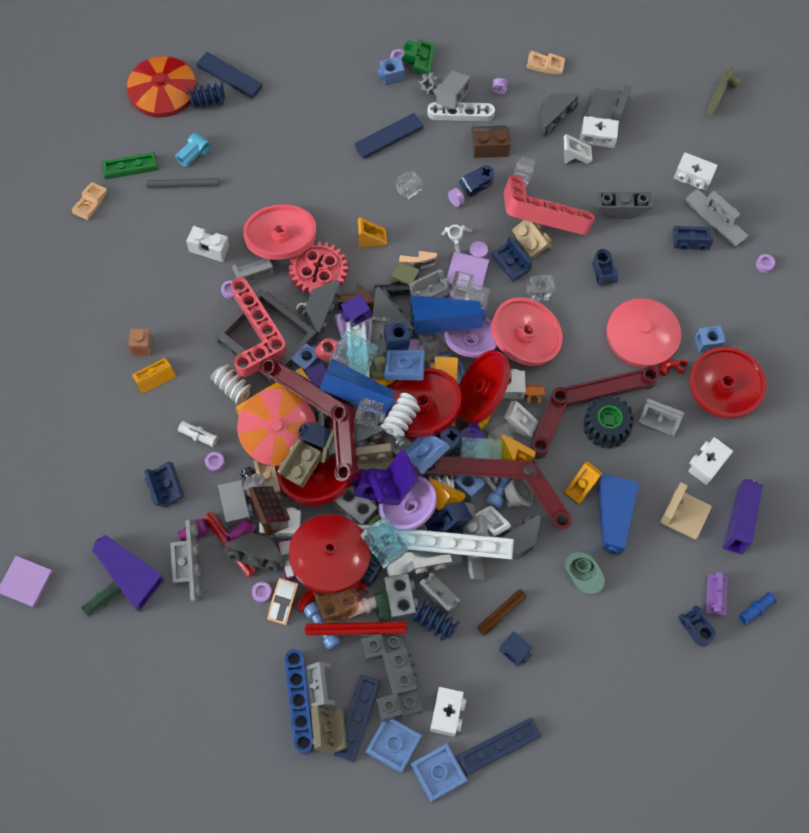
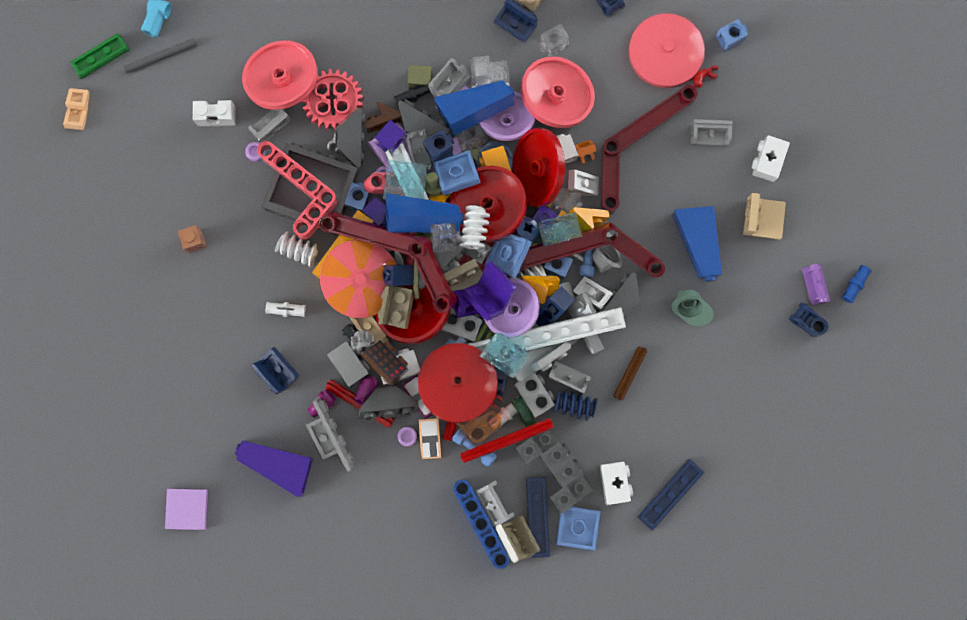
camera: 20 degrees left, 15 degrees up
(101, 599) = (263, 499): clear green pin -> none
(154, 375) = (219, 266): light orange slope -> none
(214, 462) = (312, 330): lavender tile -> none
(371, 234) = (369, 44): light orange slope -> none
(423, 261) = (431, 53): light nougat slope -> none
(438, 772) = (626, 537): medium blue tile -> none
(455, 233) = (453, 16): white plant -> none
(469, 265) = (476, 44): lavender tile -> none
(478, 249) = (479, 22): lavender tile -> none
(516, 649) = (655, 403): dark blue brick -> none
(583, 482) = (662, 224): light orange slope -> none
(608, 421) = (665, 155): black wheel -> none
(727, 382) = (762, 74): red dish -> none
(743, 517) = (818, 202): dark purple slope -> none

